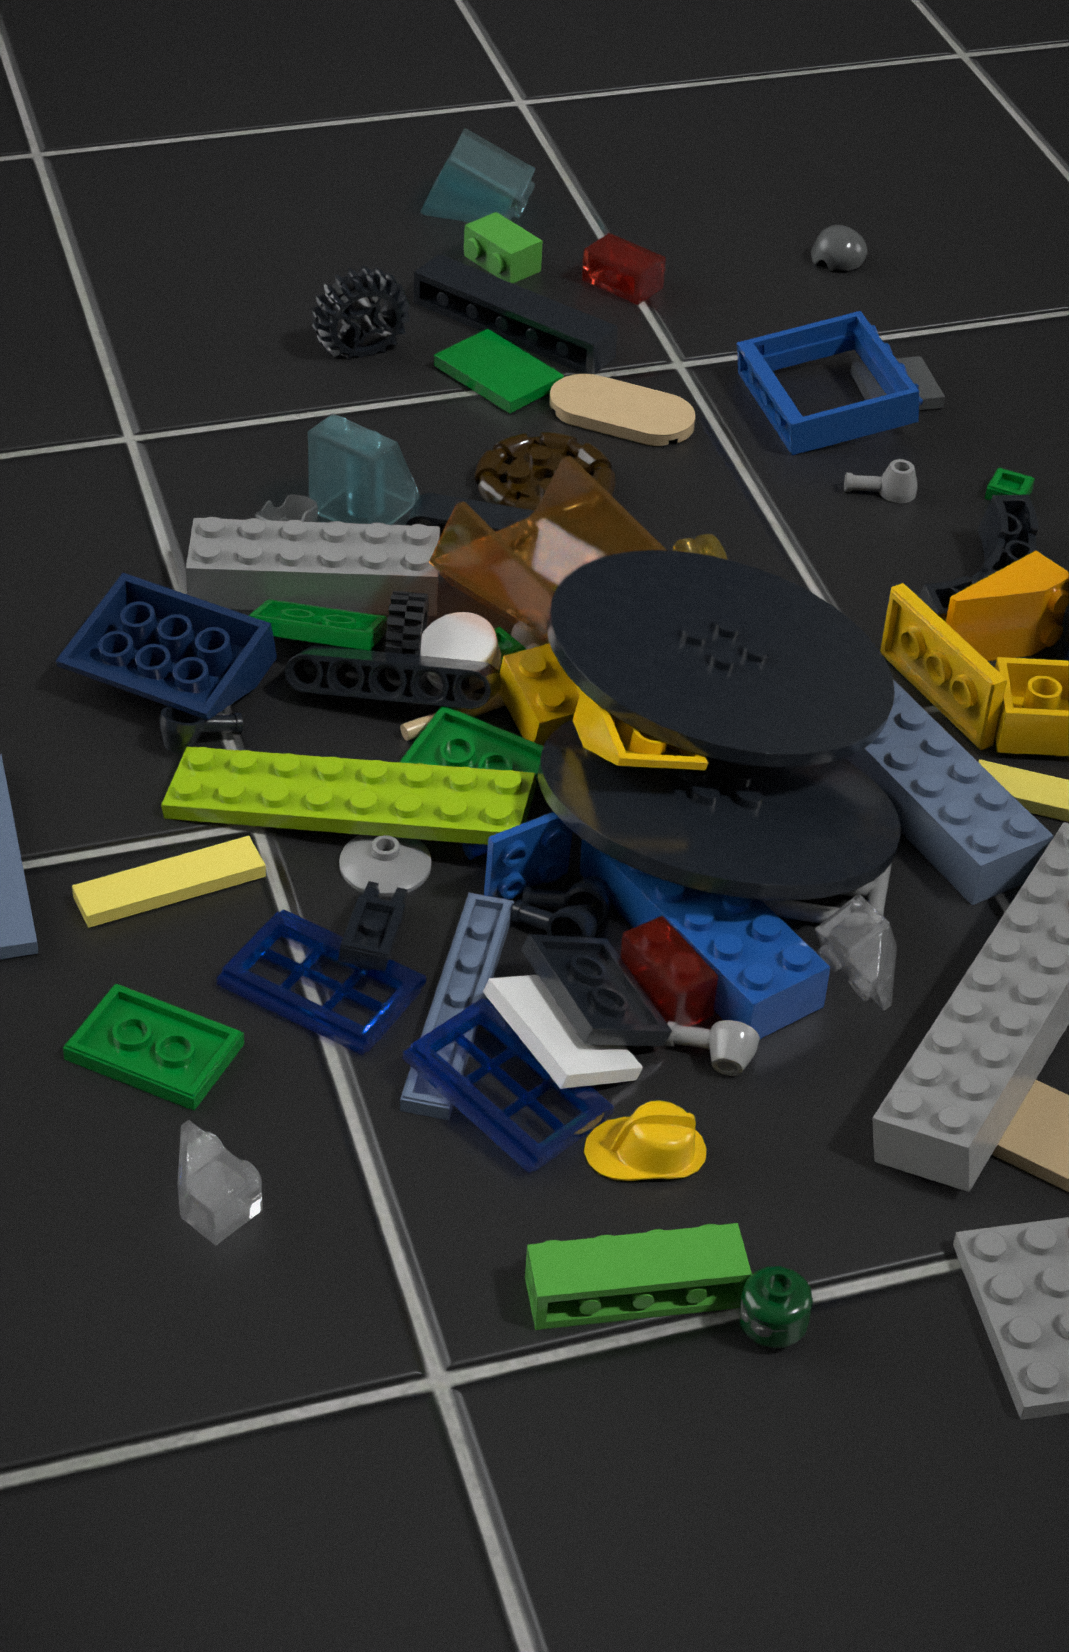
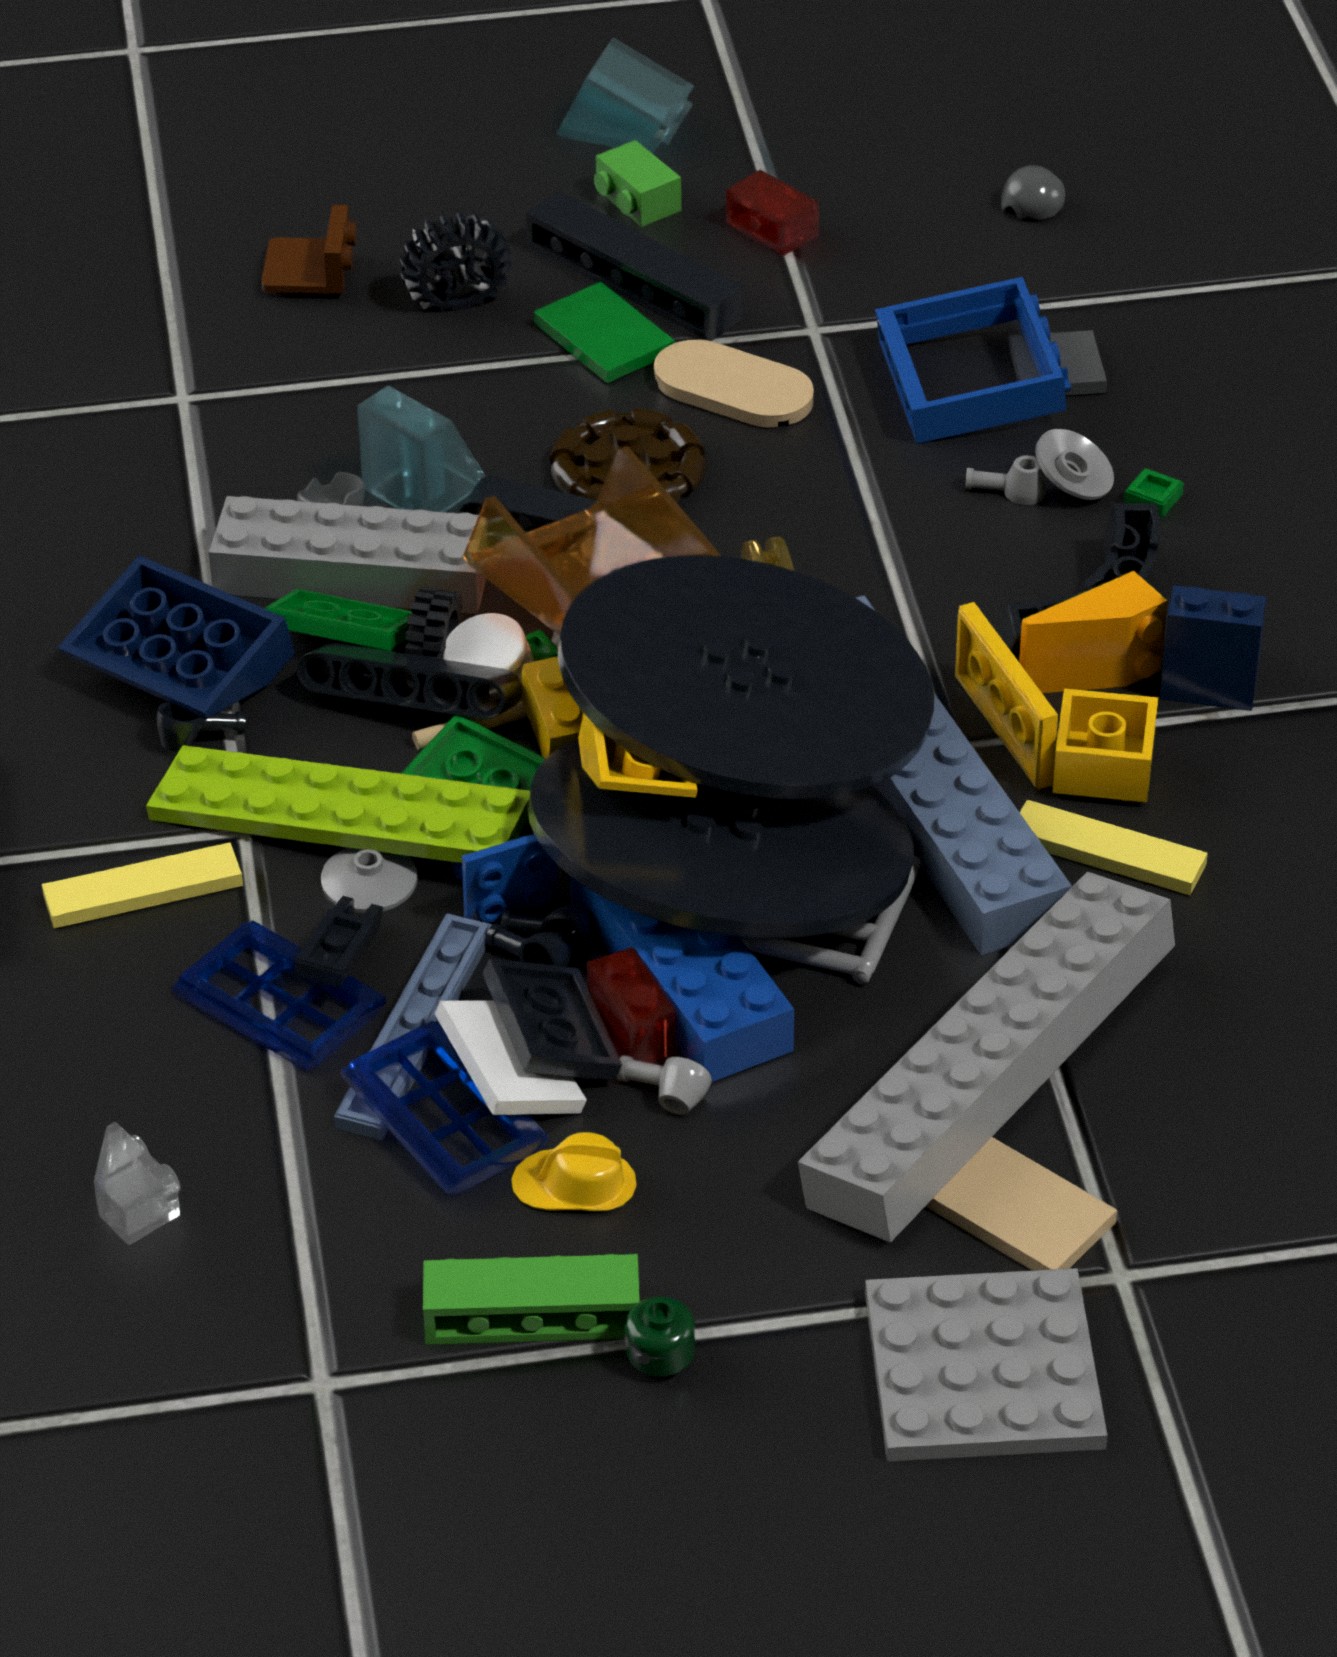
camera: 10 degrees right, 0 degrees up
(154, 1046) = (100, 1050): green tile -> none
(229, 321) = (312, 263): none -> reddish brown bracket
(861, 946) = (844, 993): clear slope -> none
(939, 466) = (1074, 464): none -> light grey dish

